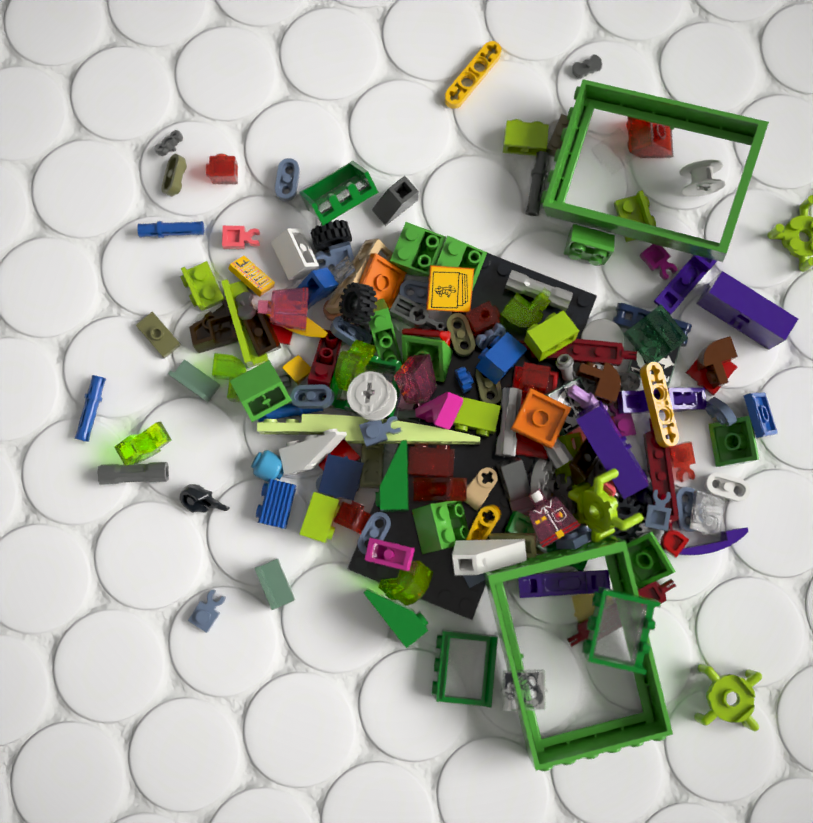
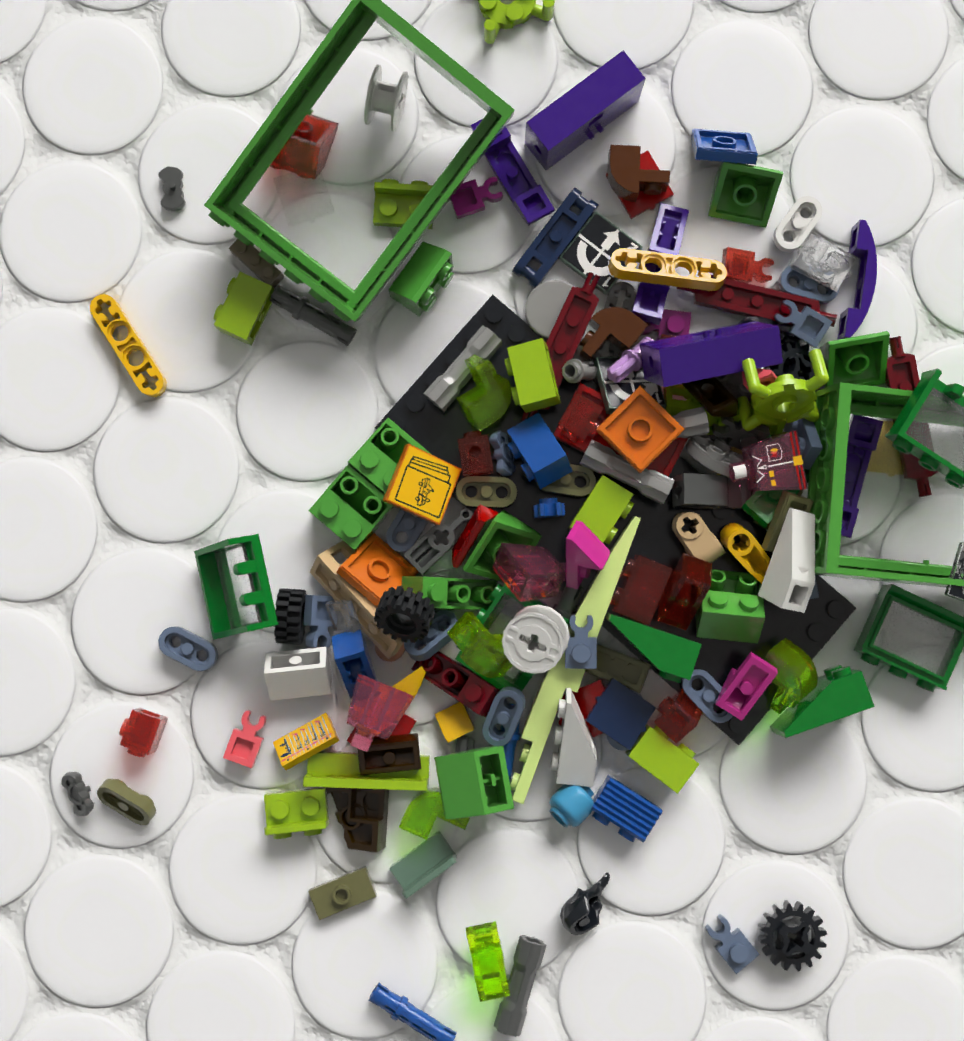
camera: 65 degrees left, 5 degrees up
(170, 229) = (200, 834): blue pin -> none
(214, 647) = (798, 925): none -> black gear
(245, 306) = (347, 764): dark grey piece -> none
(274, 584) = (727, 846): sand green panel -> none
(396, 200) = (272, 513): dark grey slope -> none
(655, 335) = (574, 239): clear green slope -> none
(673, 542) = (849, 319): red tile -> none
(721, 411) = (706, 193): sand blue plate -> none

